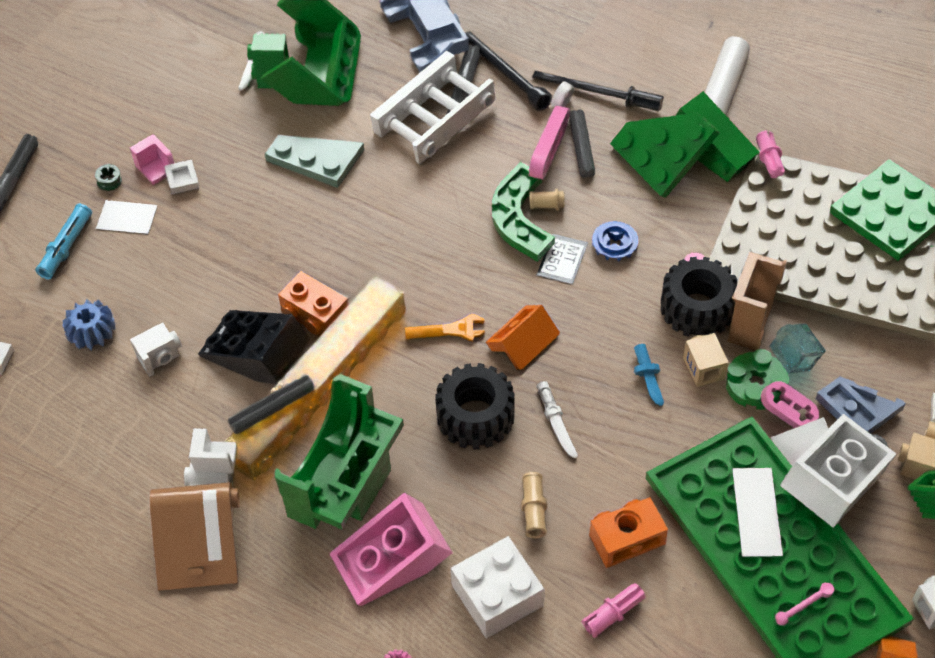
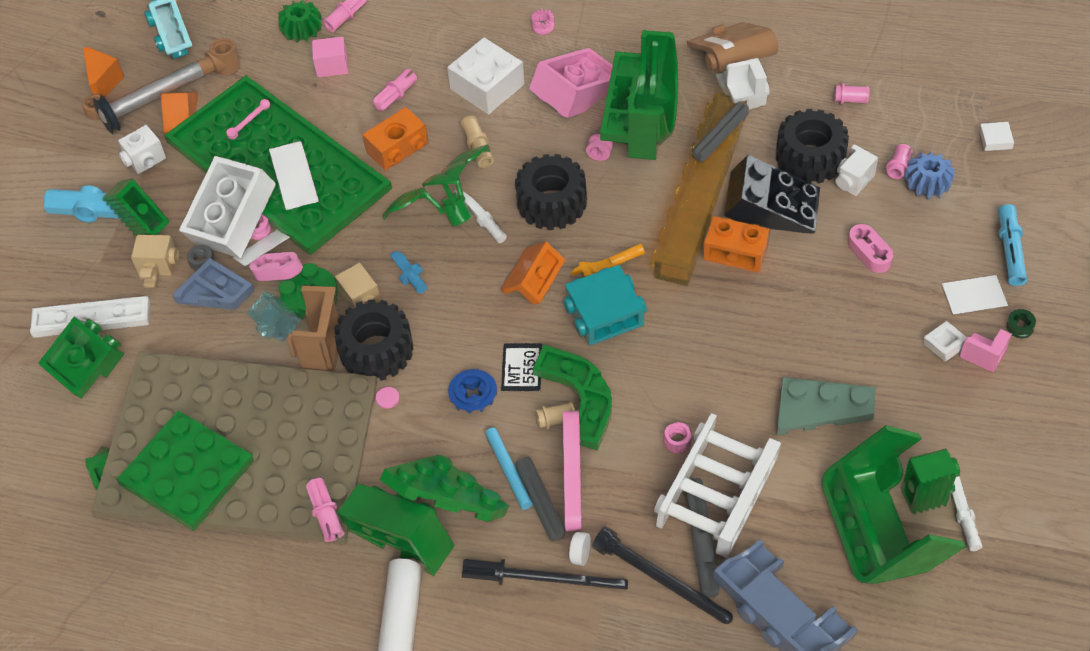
camera: 165 degrees right, 0 degrees up
(106, 350) = (899, 163): none -> bright pink pin
(109, 447) = (852, 94): none -> bright pink pin
(177, 362) = (811, 129): none -> black tyre
(195, 274) = (868, 249): none -> bright pink beam
(402, 455) = (598, 149): none -> bright pink bush
(448, 167) = (681, 446): none -> bright pink axle
(467, 273) = (604, 305): none -> teal brick
(601, 175) = (508, 468): none -> medium azure bar
(635, 443) = (453, 204): none -> green plant

